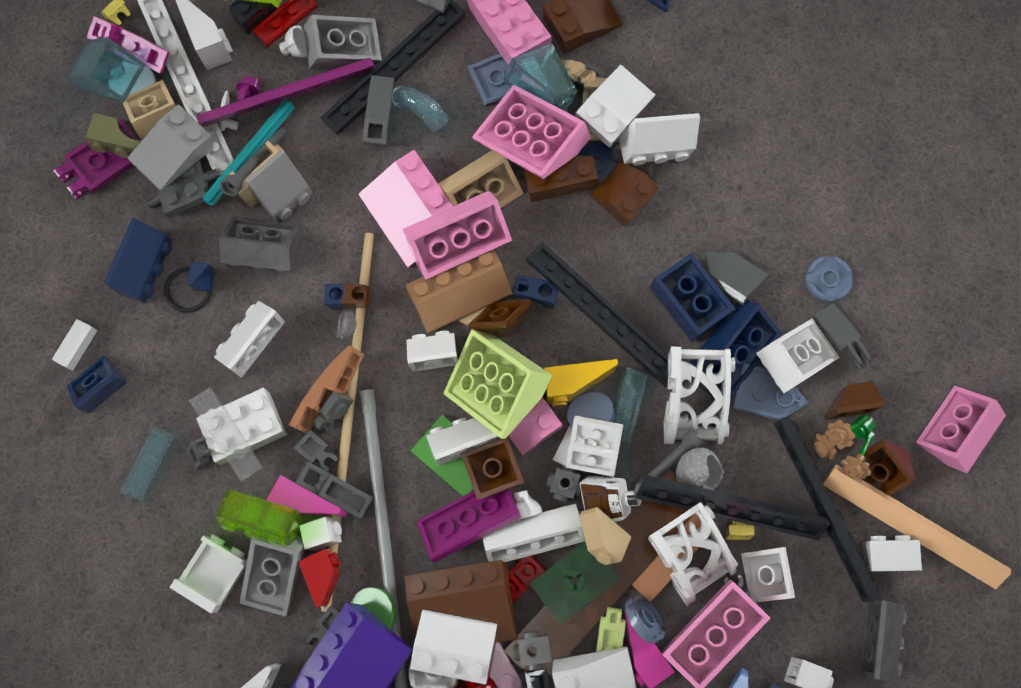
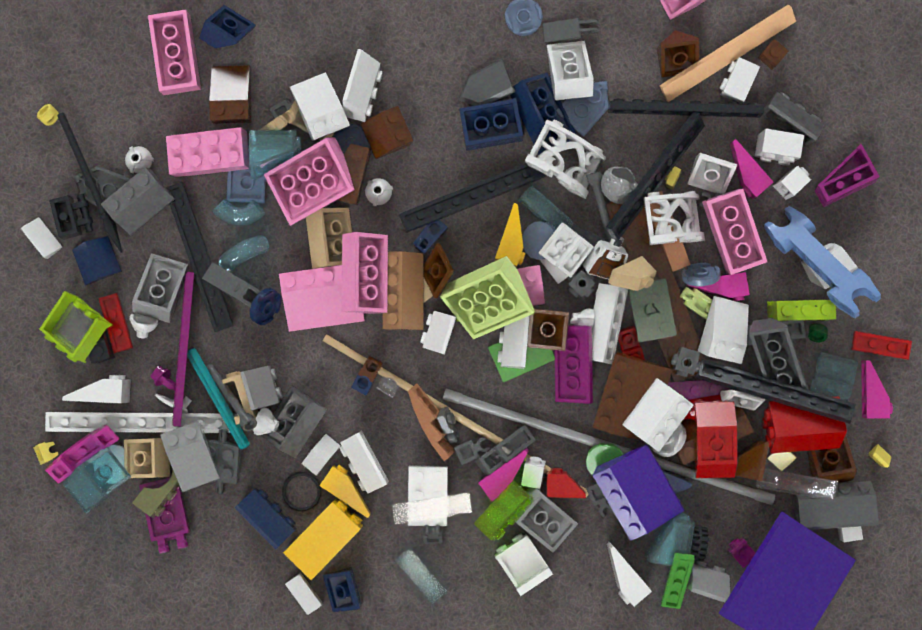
camera: 65 degrees left, 10 degrees up
(141, 332) = (324, 538): none -> yellow brick
(201, 276) = (299, 477): dark blue slope -> none
(210, 330) = (343, 487): none -> yellow slope
(238, 289) = (320, 454): none -> white slope
(245, 210) = (265, 422): none -> white piece
(372, 153) = (265, 306): none -> dark blue tile
(457, 83) = (239, 215): none -> clear light blue cylinder
(553, 221) = (381, 198): none -> white piece
(791, 622) = (750, 174): none -> dark pink slope
(842, 435) = (645, 74): medium nougat plant -> none
(842, 639) = (779, 146): none -> white brick
(856, 400) = (622, 48): reddish brown slope -> none
(944, 579) = (773, 54): none -> reddish brown brick

